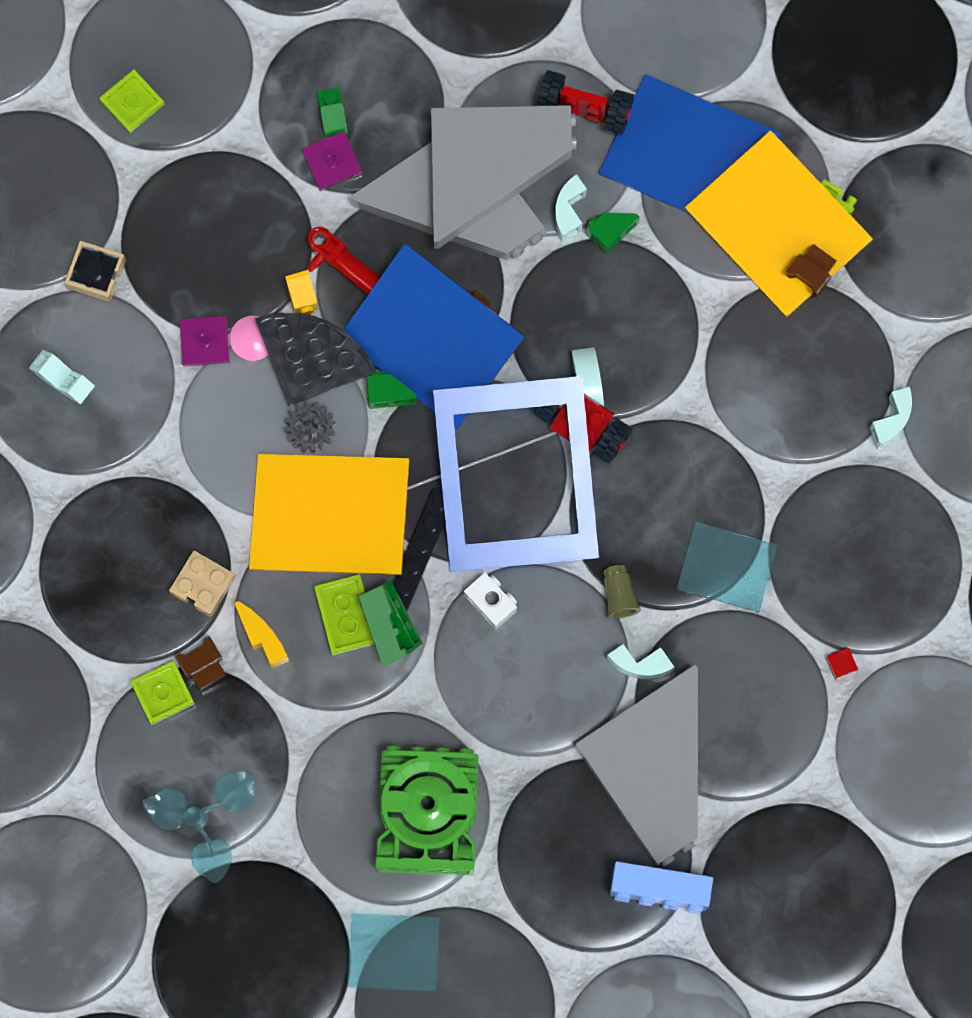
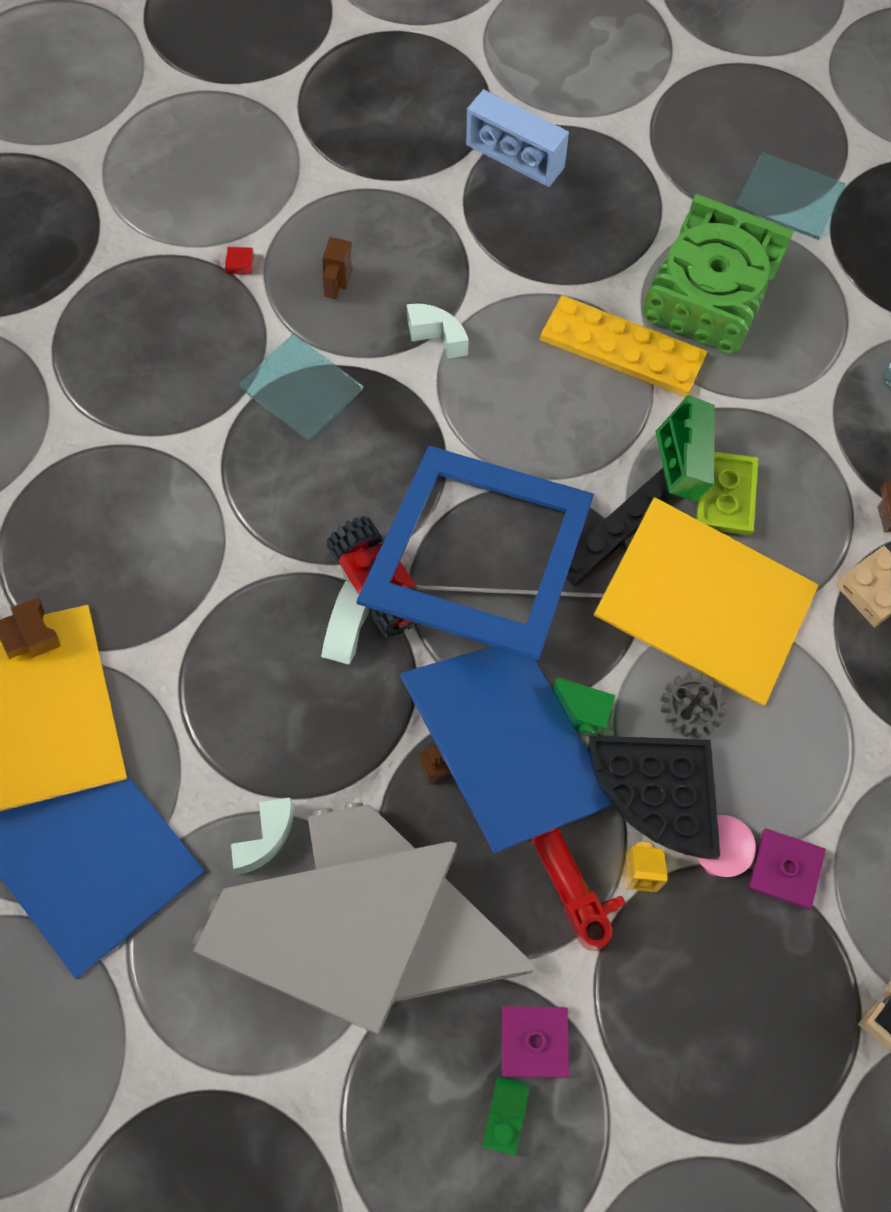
camera: 155 degrees left, 10 degrees down
(261, 635) = (829, 507): yellow slope -> none
(481, 721) = (623, 346): none -> yellow plate
(494, 614) = (564, 429): white brick -> none
(586, 104) = (139, 927): plate -> none
(611, 228) = (227, 787): green slope -> none
(620, 593) = (425, 396): olive plant -> none
(651, 766) = (471, 244): light grey slope -> none
(751, 679) = (336, 266): none -> reddish brown piece
(888, 429) = (50, 440): light aqua brick -> none

